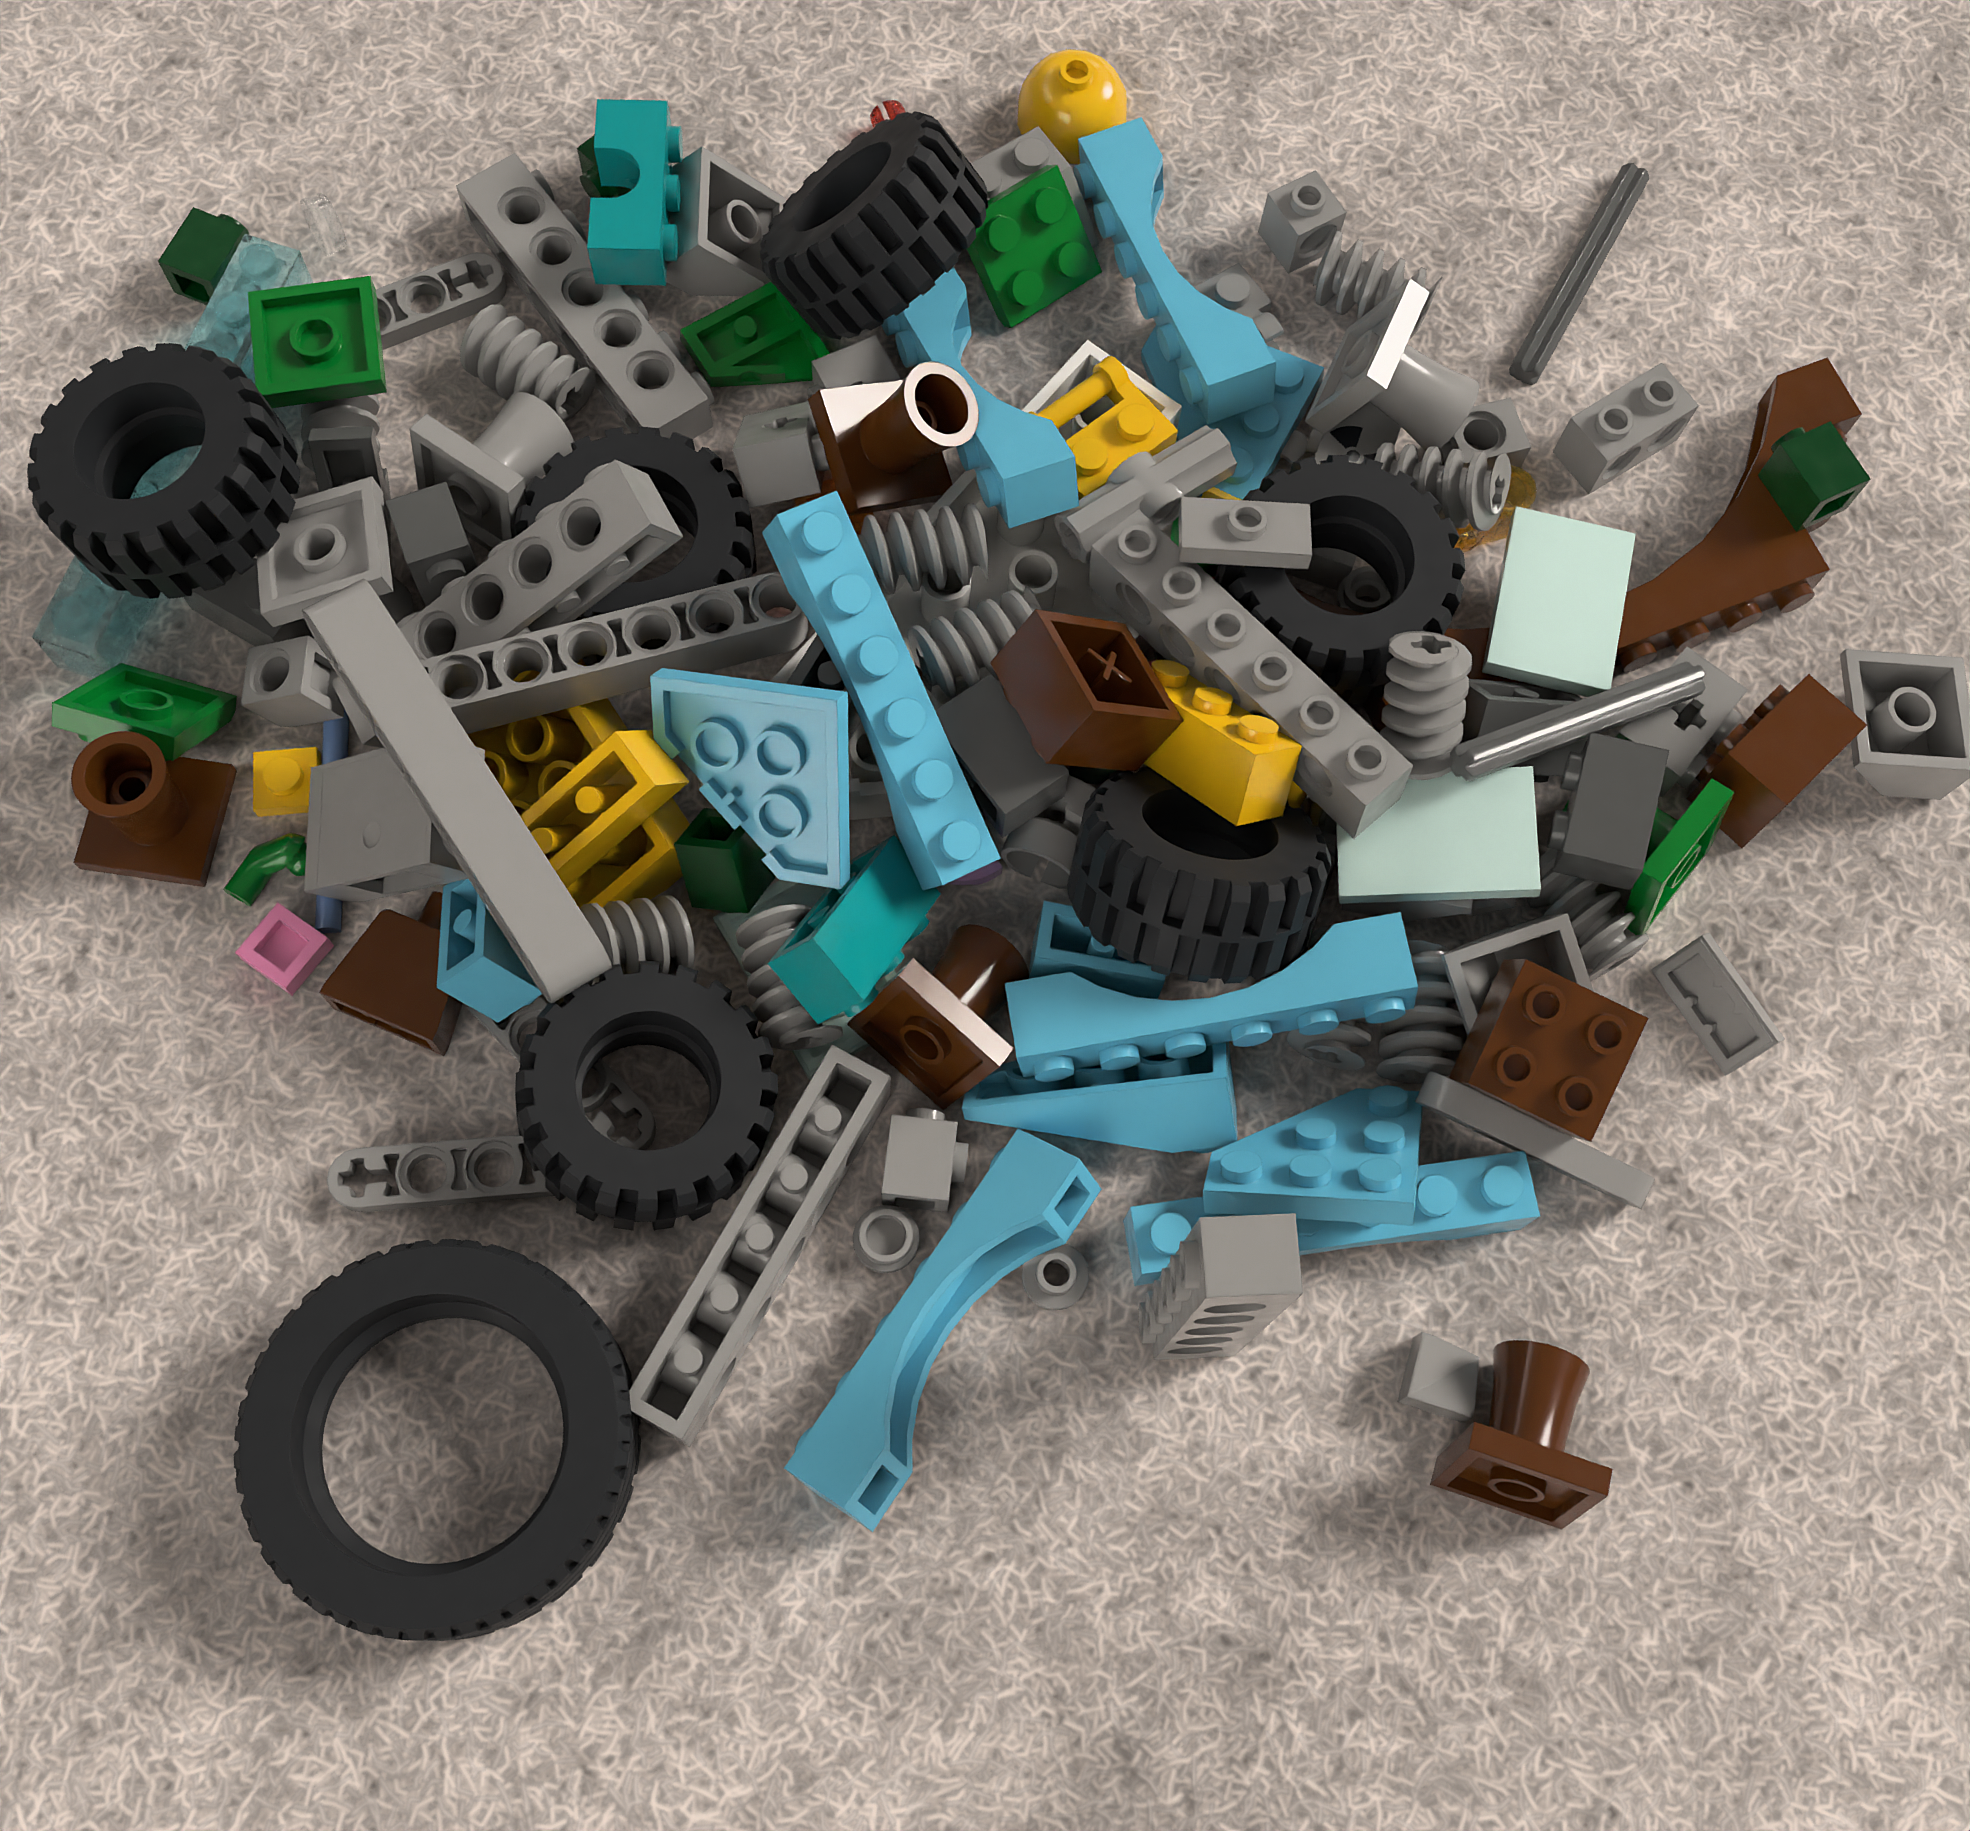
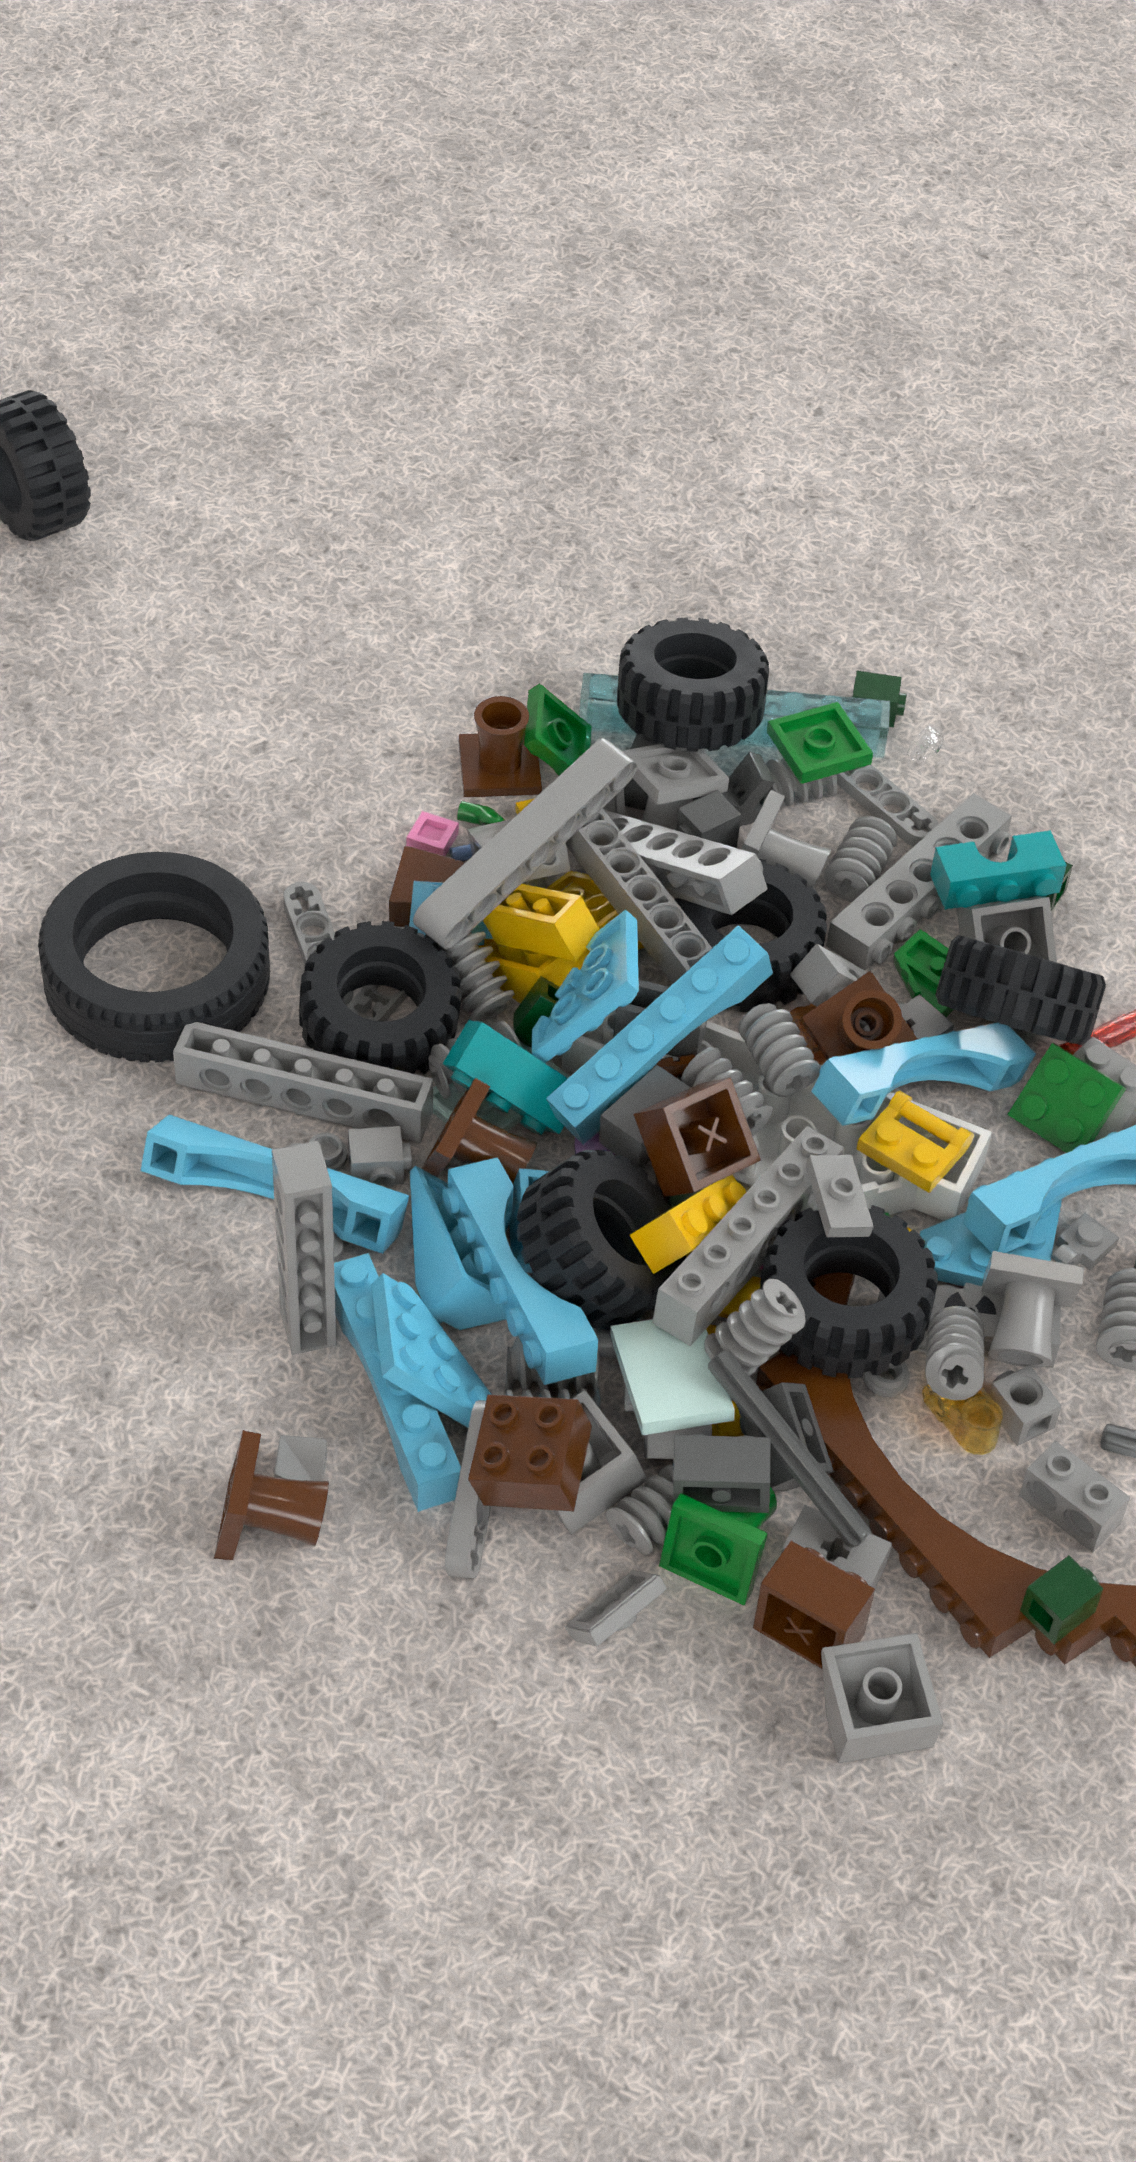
camera: 80 degrees right, 20 degrees down
(1148, 485) = (882, 1173): light grey piece -> none
(1559, 603) = (894, 1448): light aqua tile -> none

